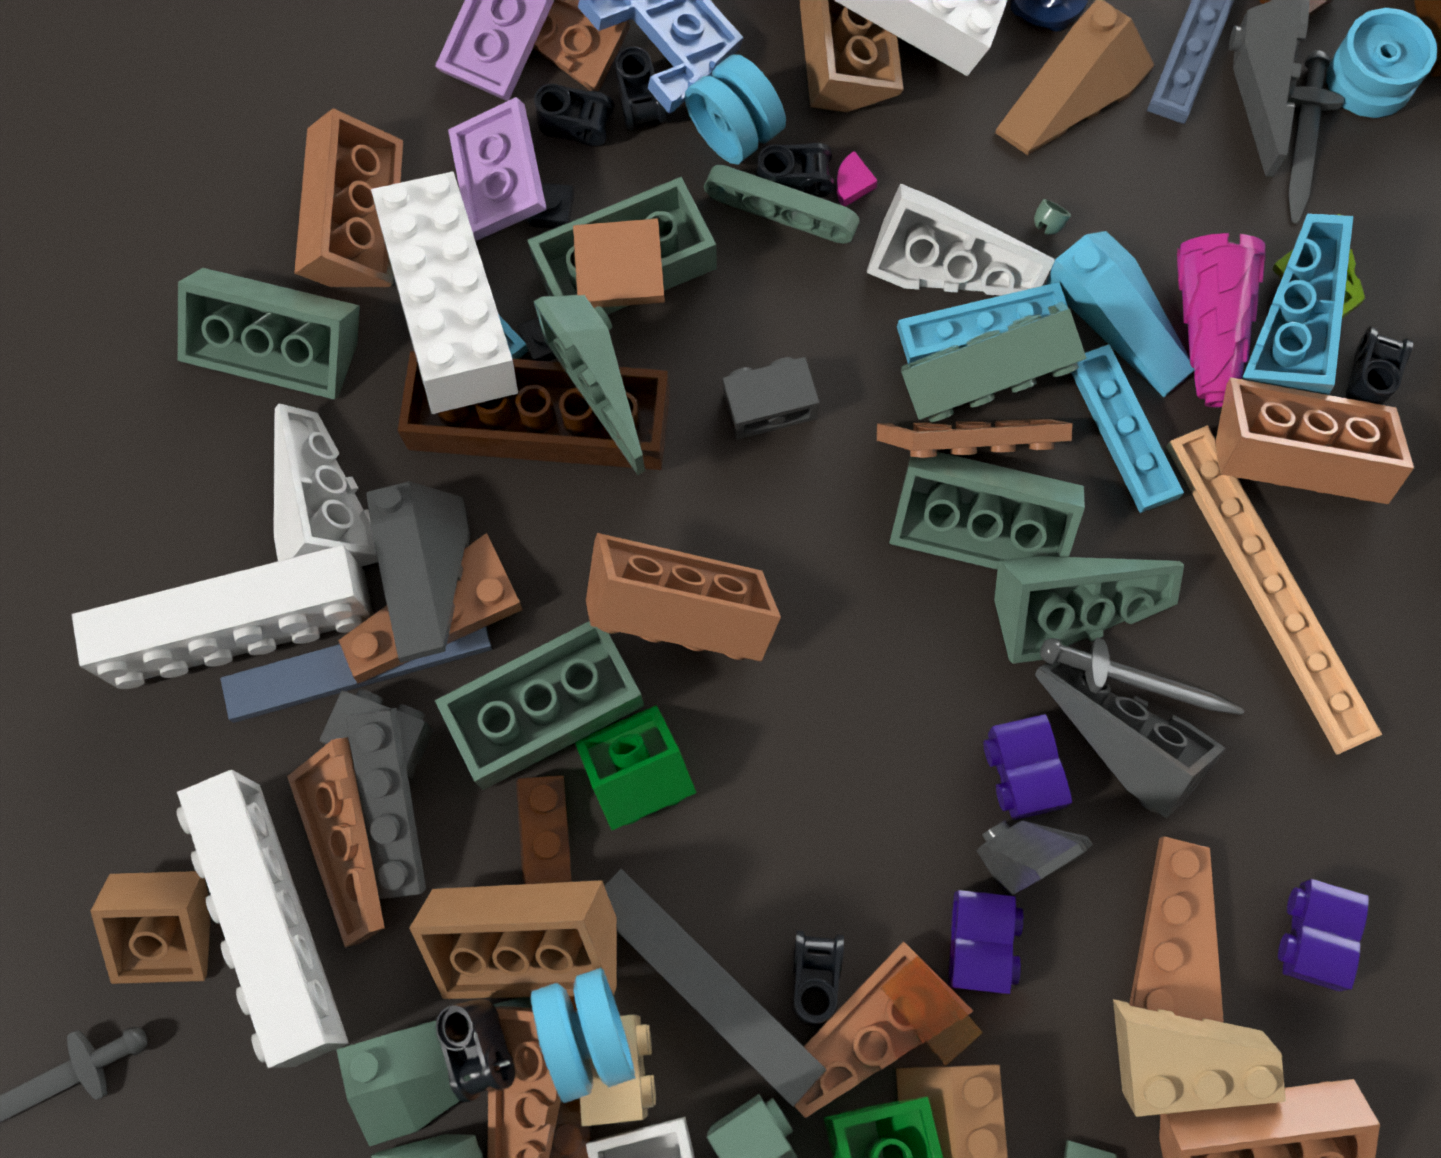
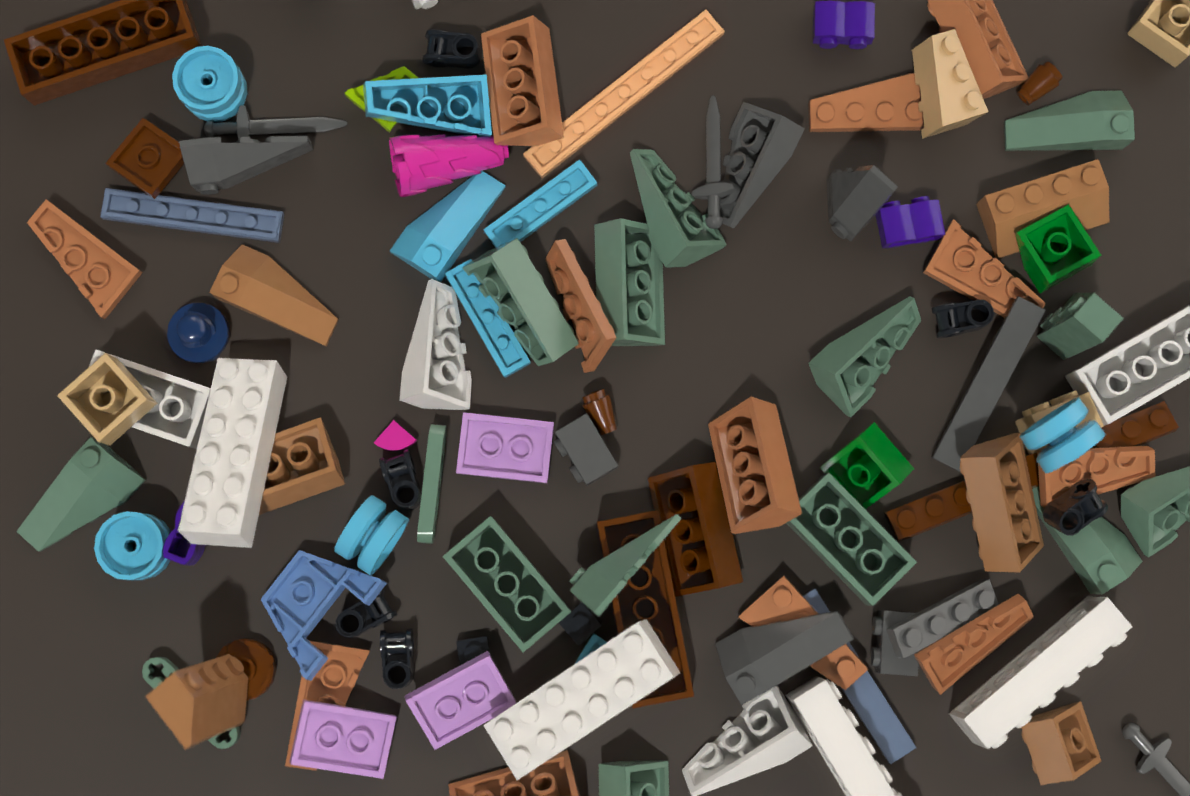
camera: 110 degrees left, 10 degrees up
(619, 263) = (527, 579): nougat tile -> none
(650, 508) = (701, 543): none -> reddish brown slope
(796, 803) = (855, 360): none -> sand green wedge
(802, 301) = (505, 447): none -> lavender plate
(818, 431) = (600, 411): none -> reddish brown cone
(931, 1010) = (962, 243): clear orange tile -> none
(1028, 767) = (793, 219): dark purple brick -> none
(1052, 215) = (389, 290): sand green hinge -> none

